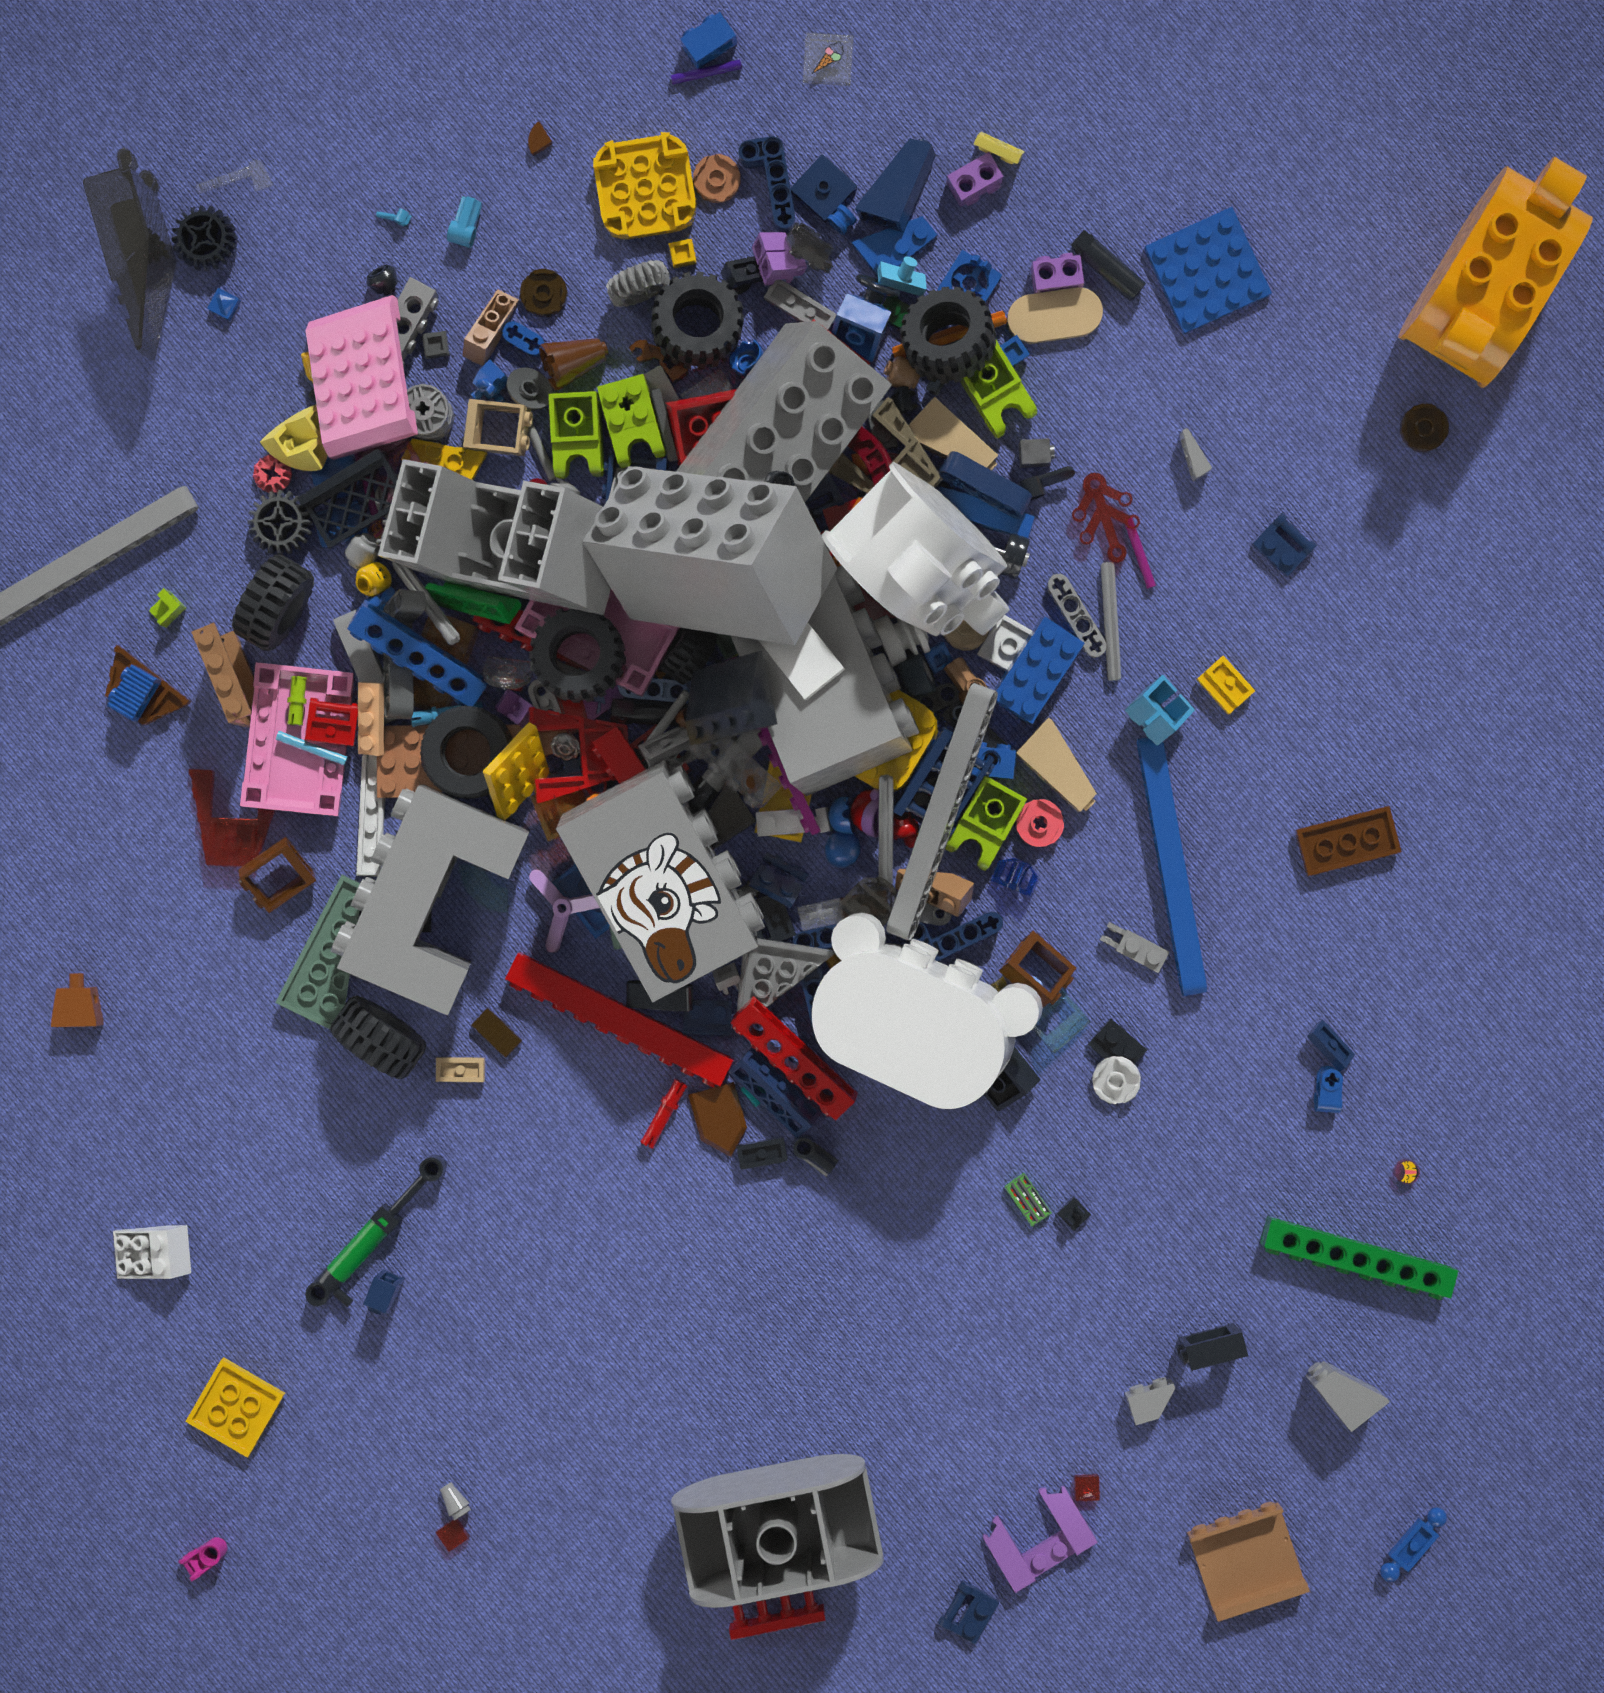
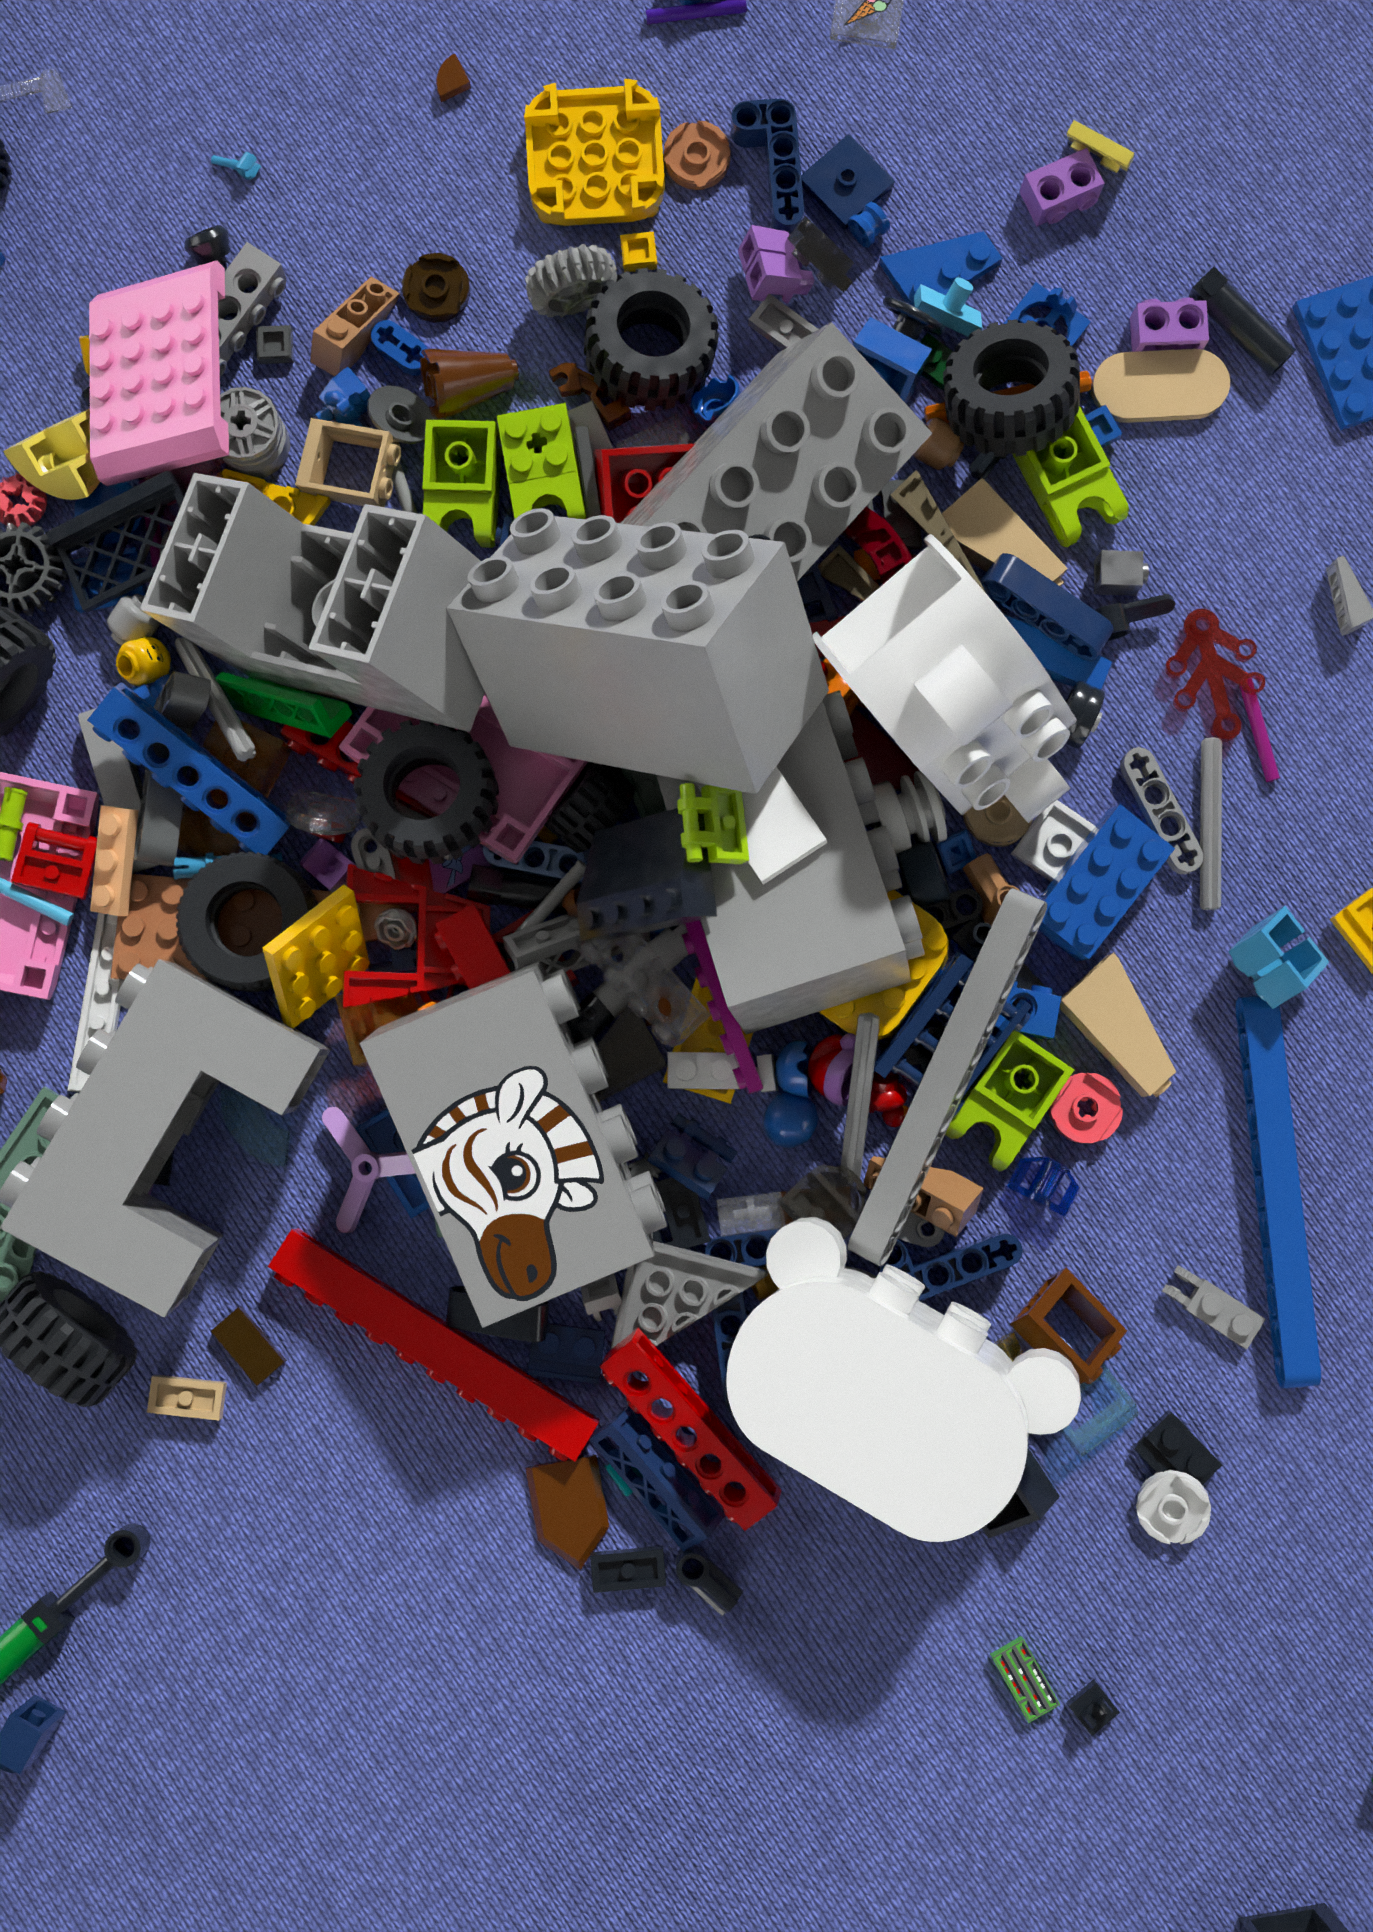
camera: 10 degrees right, 5 degrees down
(463, 228) = (332, 186): dark azure piece -> none
(668, 1105) = (492, 1484): red pin -> none
(741, 274) = (721, 283): black plate -> none
(776, 665) = (724, 824): none -> lime plate
(898, 187) = (952, 187): dark blue slope -> none
(902, 399) = (935, 478): black tile -> none

